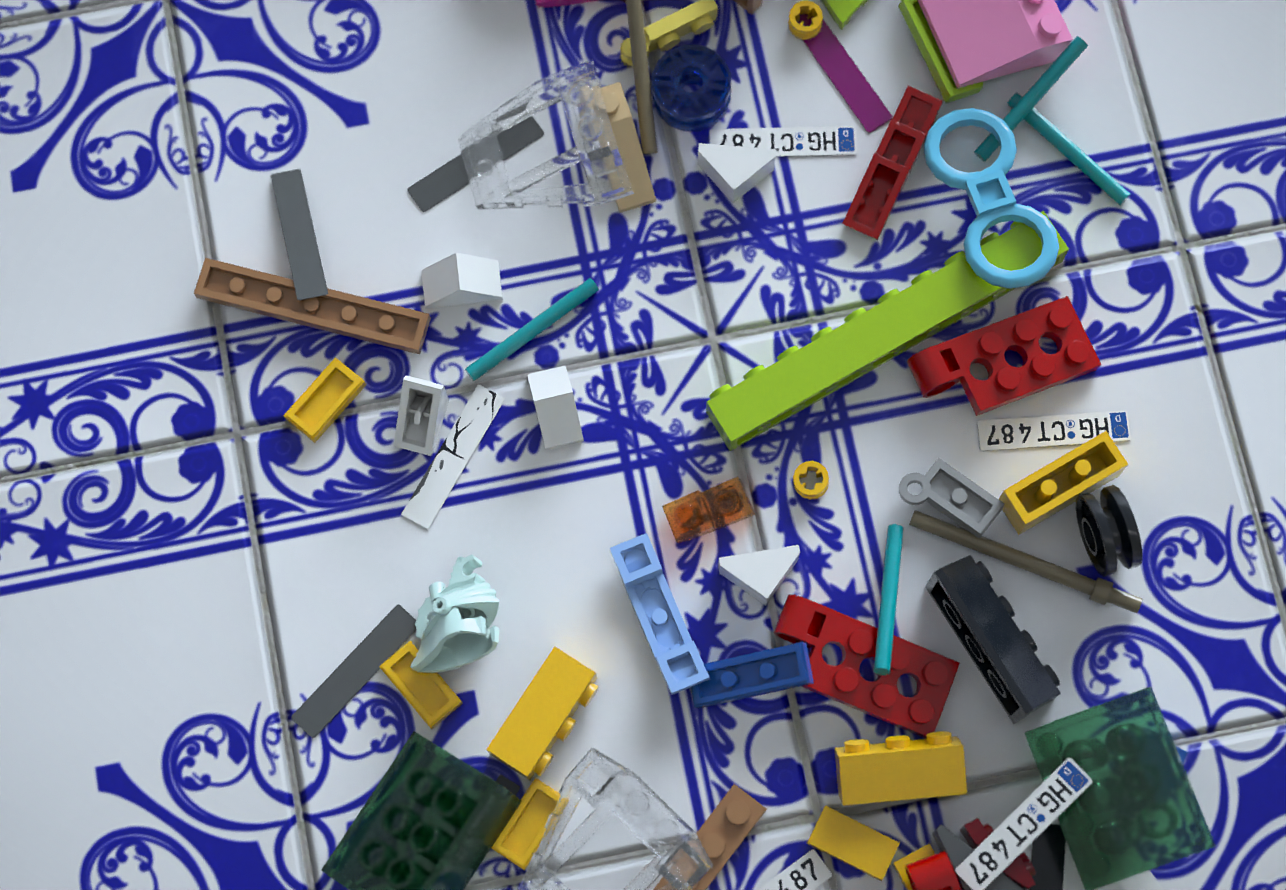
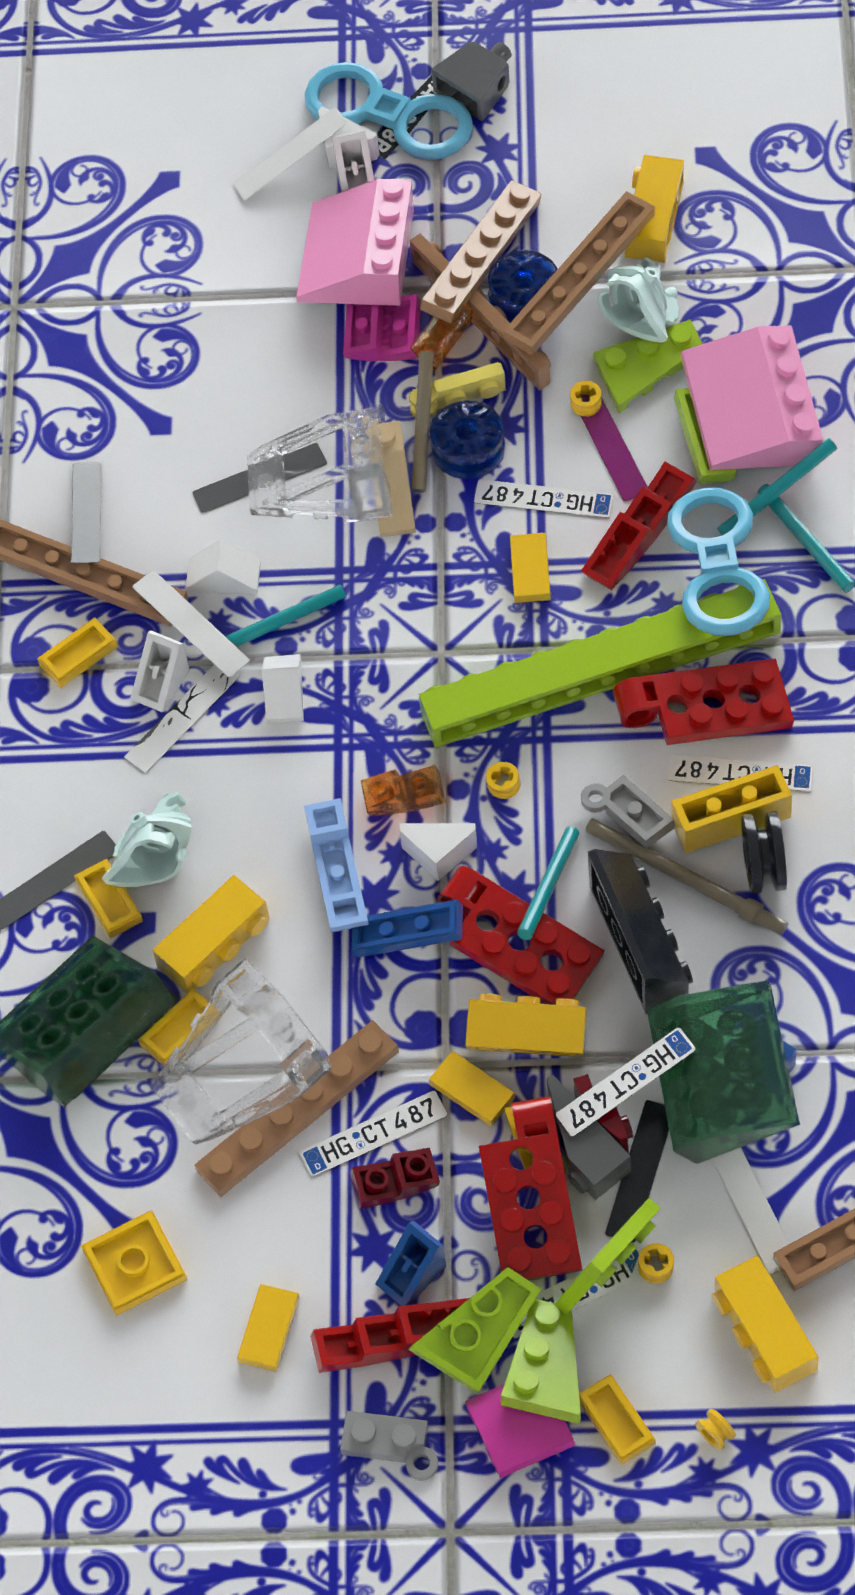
camera: 15 degrees right, 15 degrees down
(441, 351) = (191, 623): none -> white sticker
(735, 167) = (494, 510): white slope -> none
(787, 227) = (530, 567): none -> yellow tile

